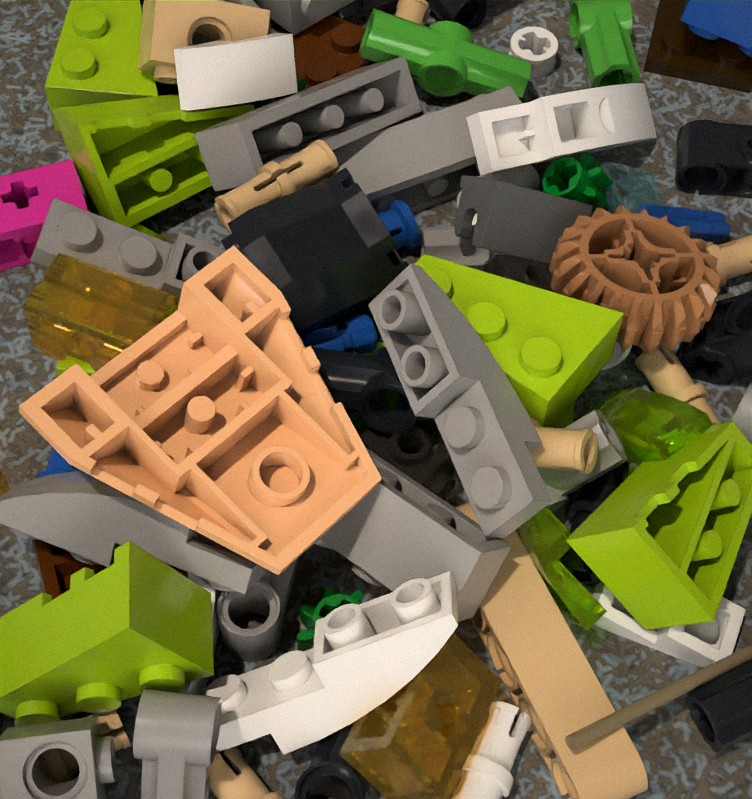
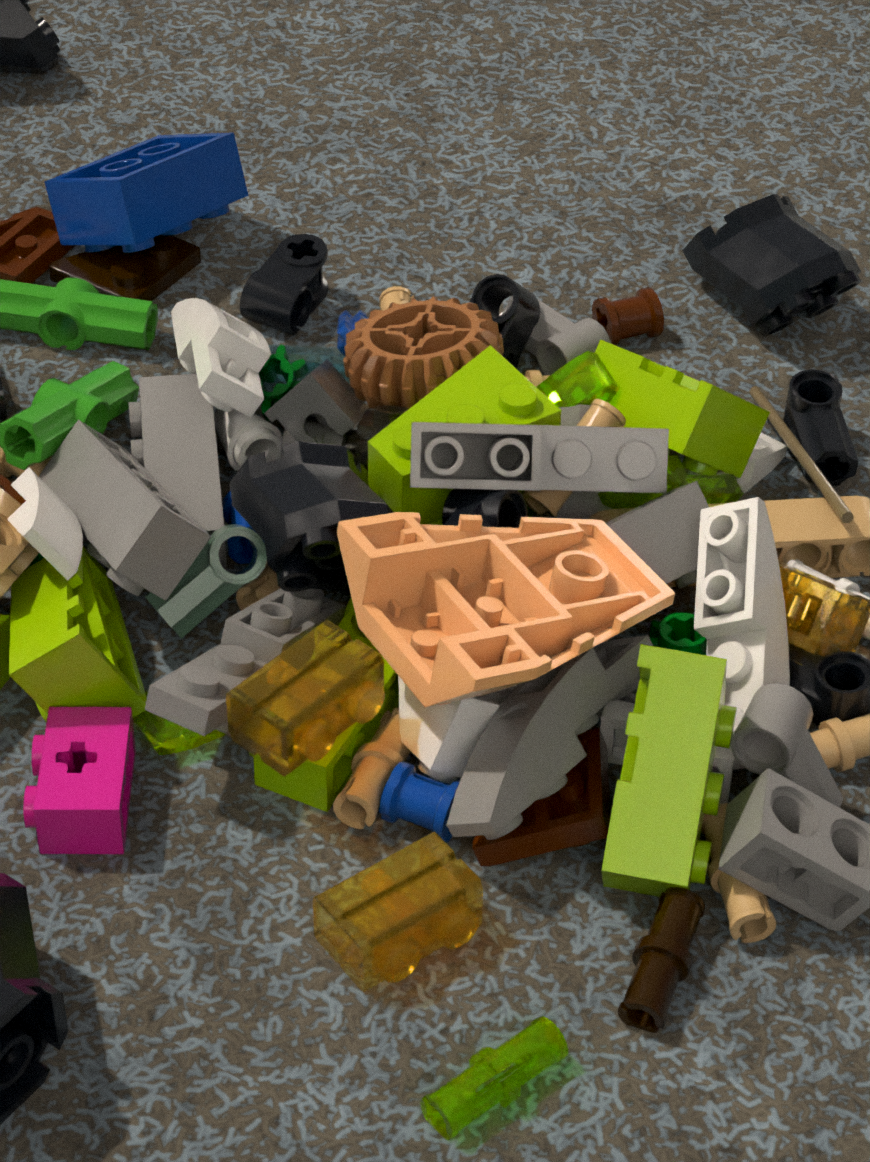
camera: 70 degrees left, 15 degrees down
(277, 180) = (228, 522): tan pin -> none
(542, 44) = (65, 360): white bush -> none

